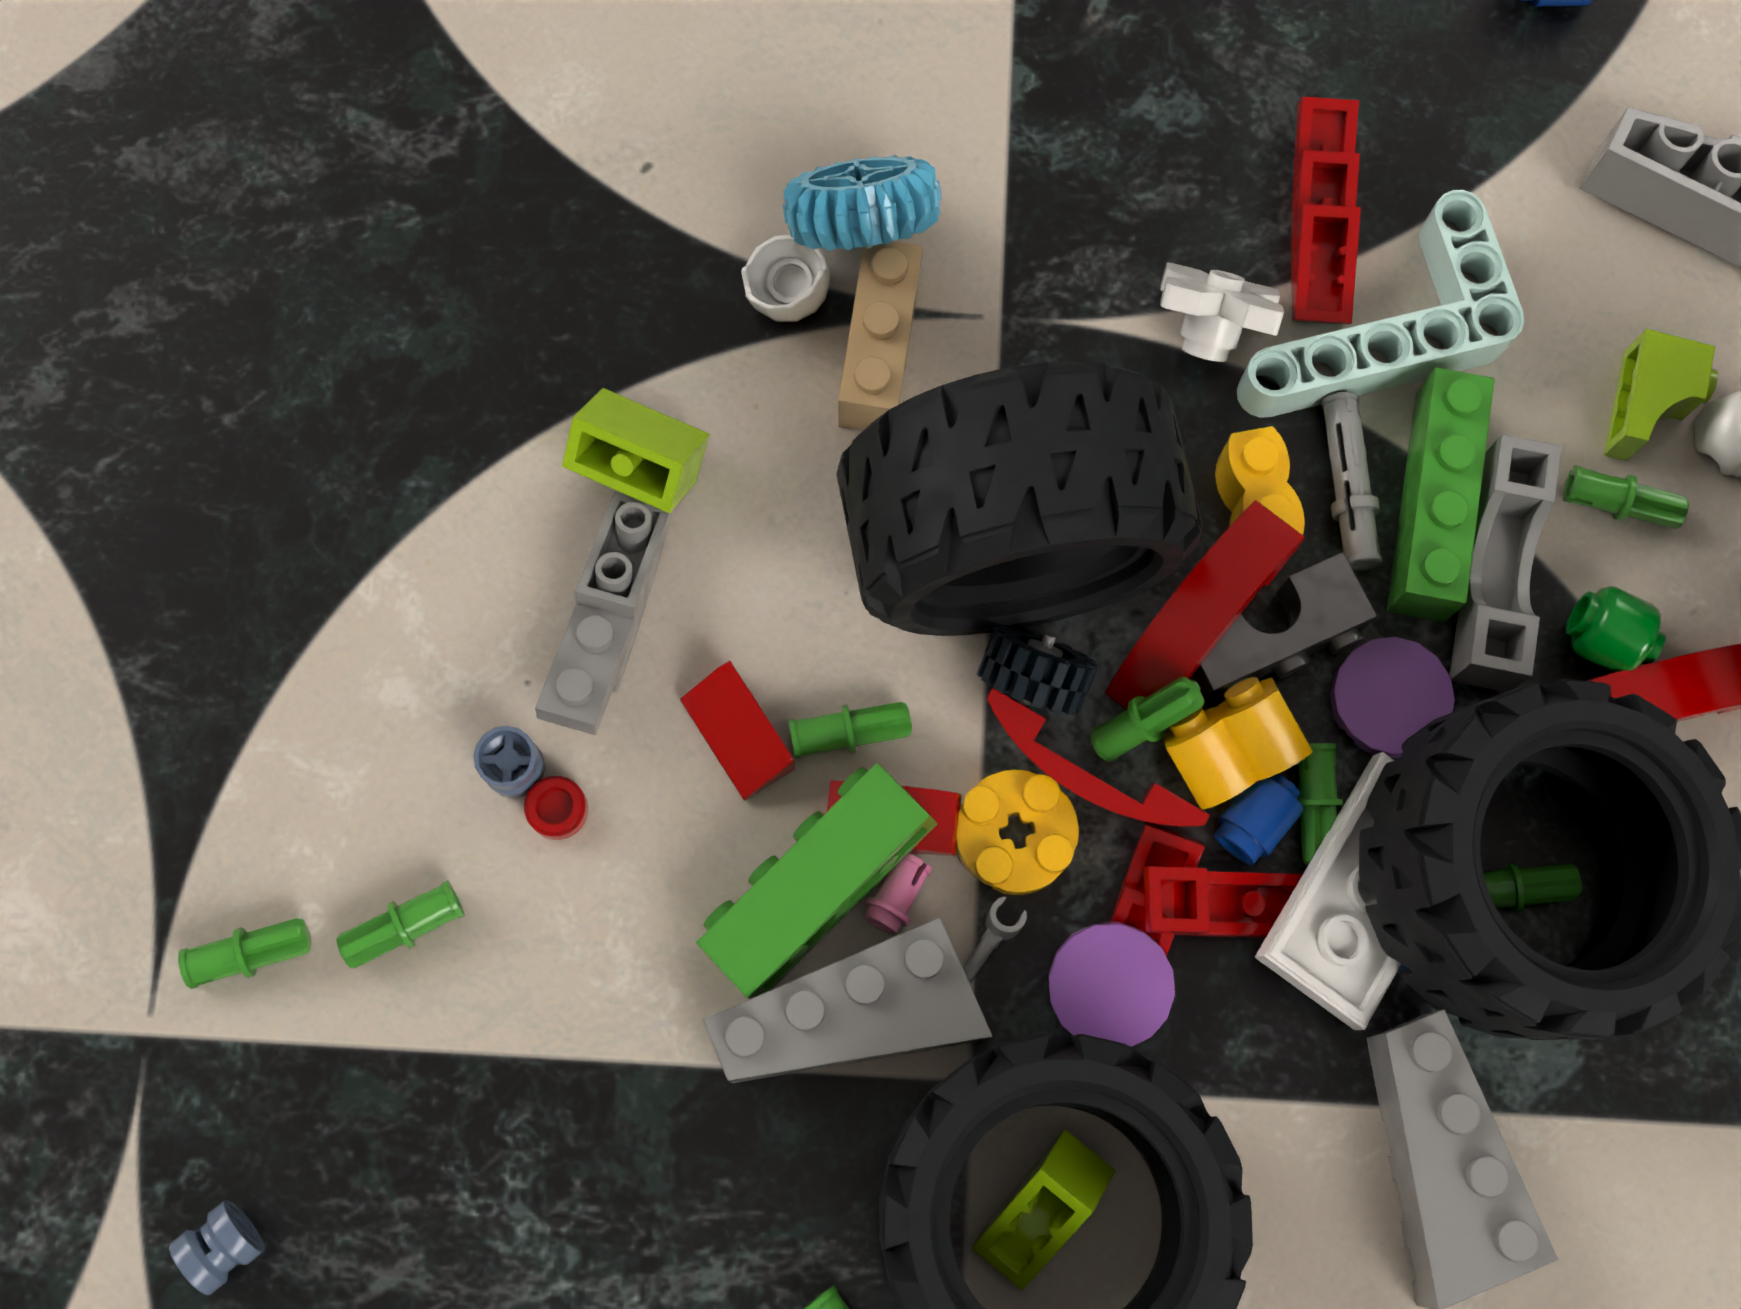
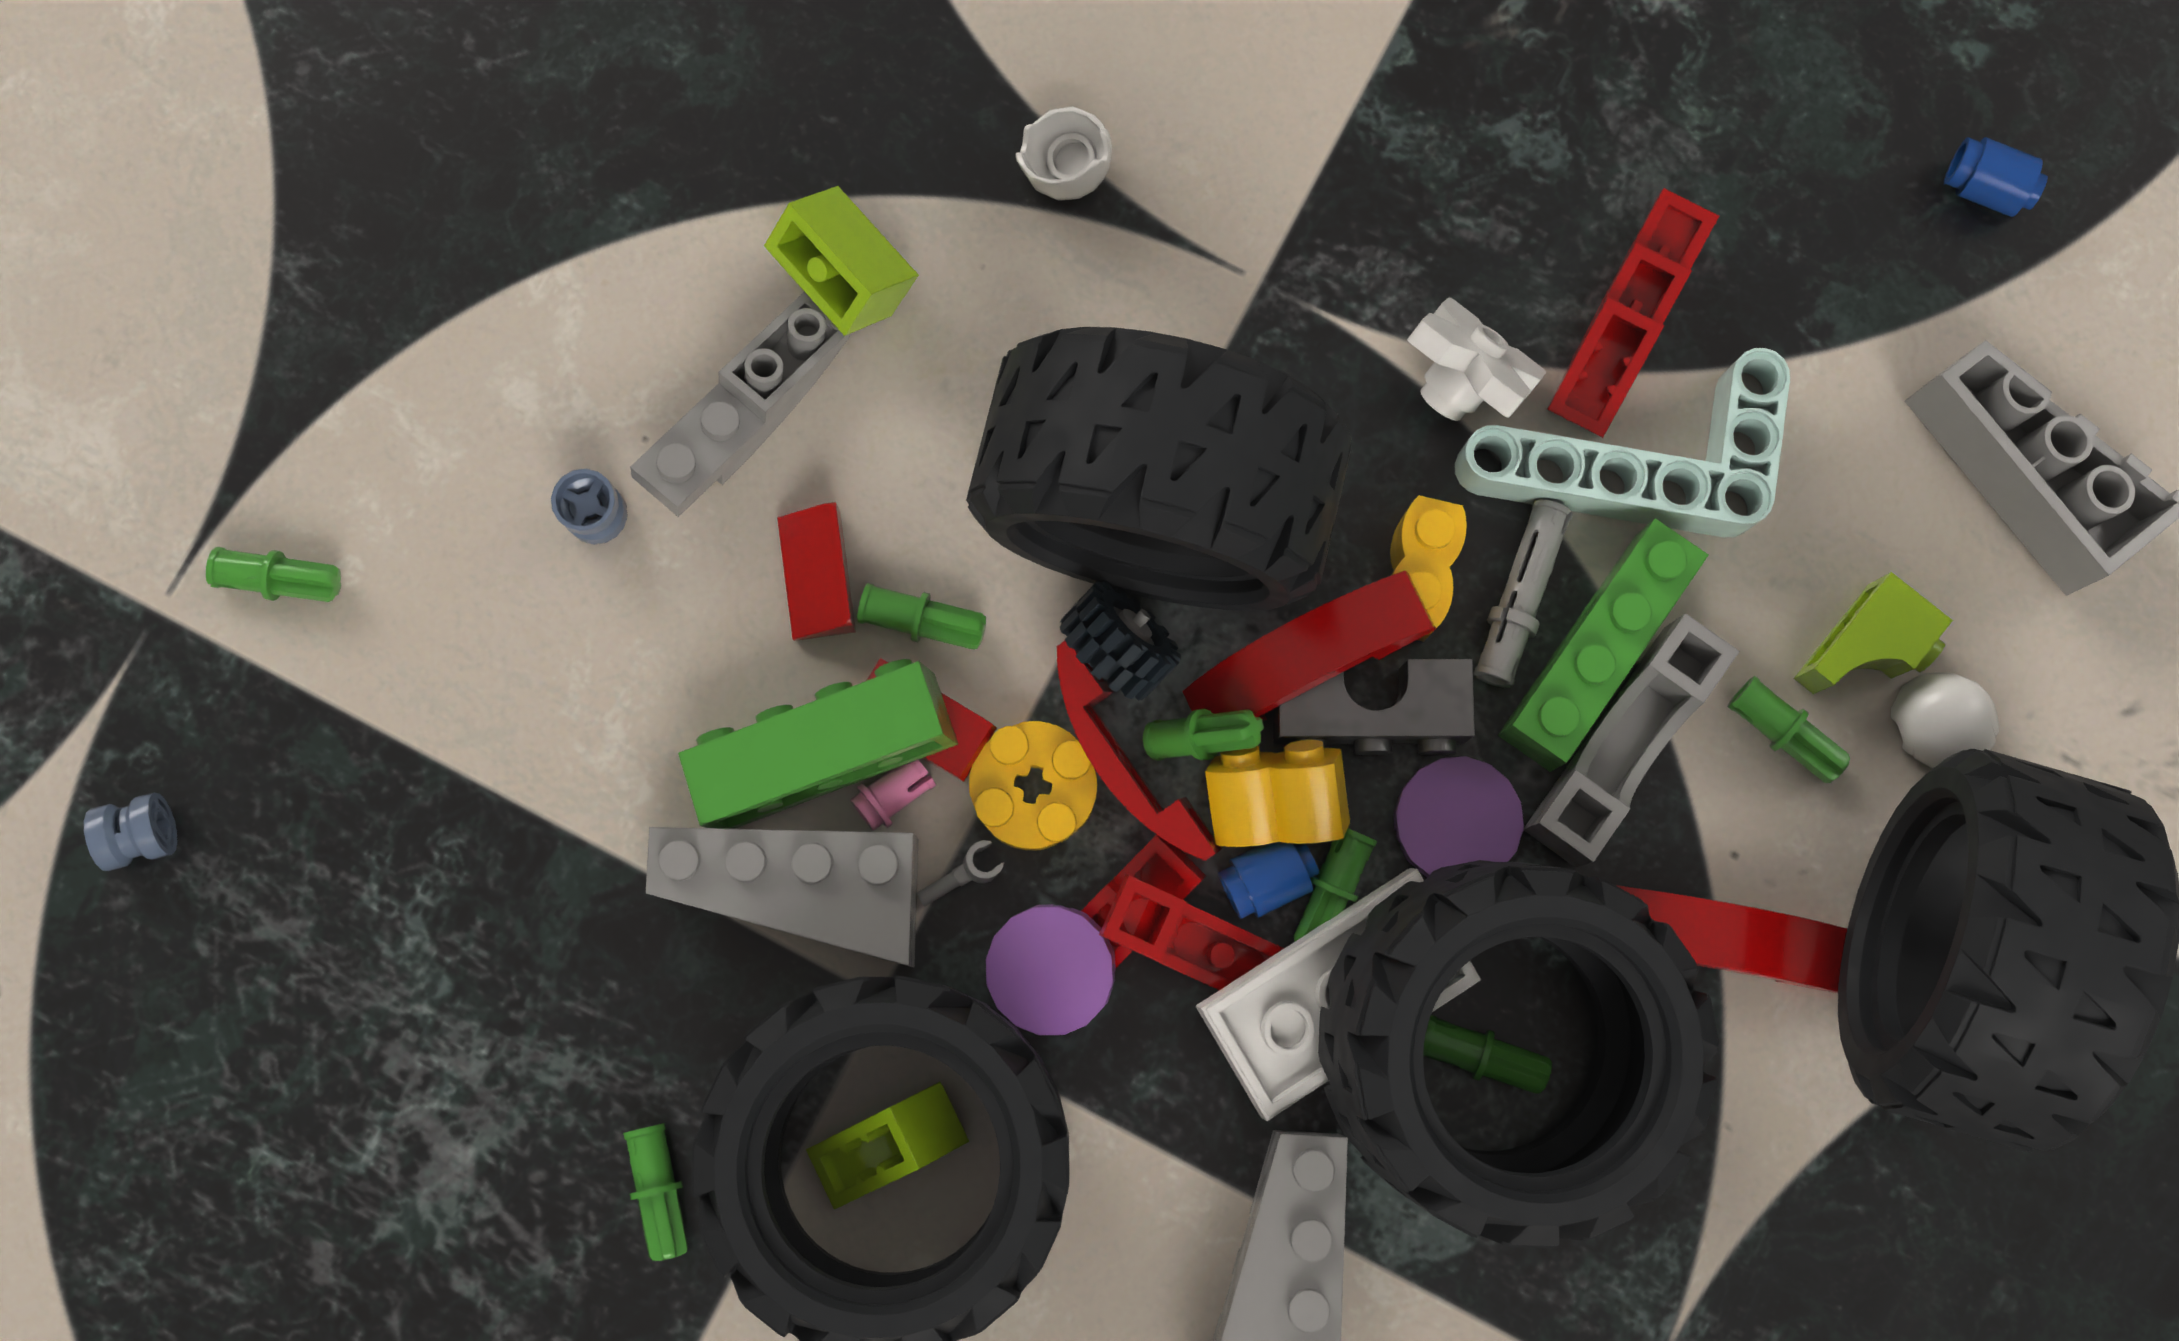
camera: 25 degrees right, 5 degrees up
(399, 925) = (424, 614): bright green axle -> none
(556, 807) = (616, 568): red tile -> none
(862, 202) = (1167, 110): medium azure gear -> none
(879, 333) = (1130, 244): tan brick -> none
(1615, 630) = (1708, 854): green head -> none

